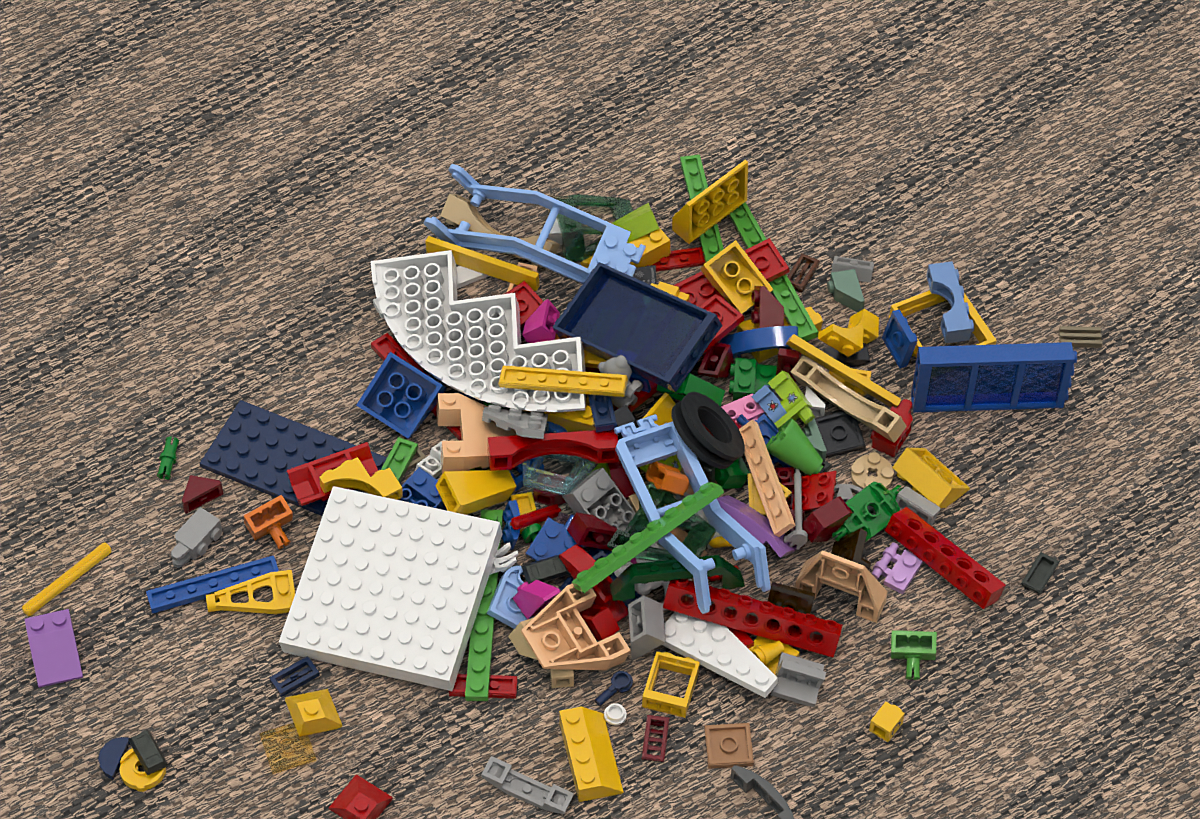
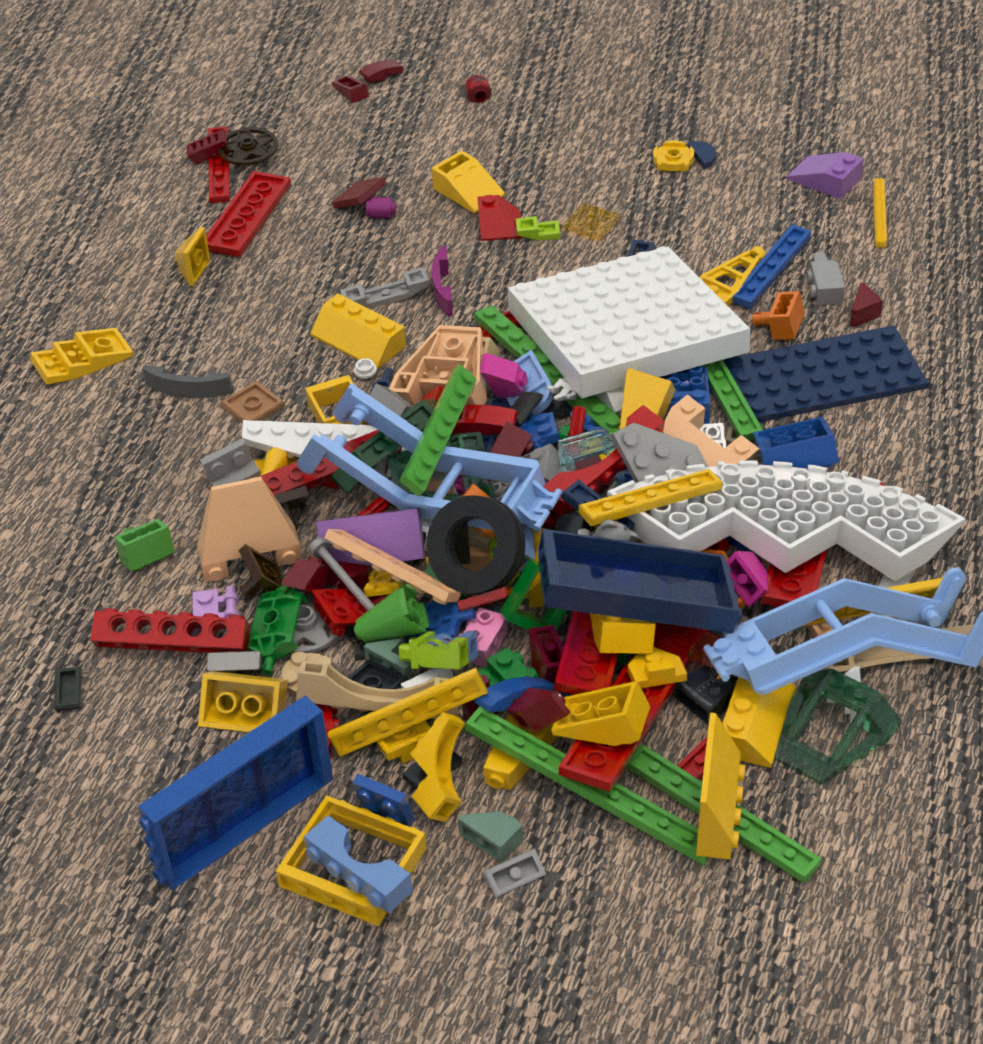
camera: 145 degrees right, 10 degrees down
(148, 752) = (678, 156): pearl dark grey tile -> none
(168, 458) = (922, 314): green pin -> none
(306, 480) = (767, 365): red piece -> none
(313, 712) = (594, 237): yellow slope -> none
(339, 768) = (530, 228): none -> lime slope
(353, 475) = (747, 352): yellow arch -> none
(458, 781) = (441, 294): none -> magenta slope
(638, 222) = (773, 730): lime slope -> none
(655, 721) = (316, 375): dark red slope -> none
(795, 284) = (566, 847): reddish brown tile -> none
(886, 721) = (126, 485): yellow brick -> none
(1080, 334) = (187, 959): dark tan tile -> none

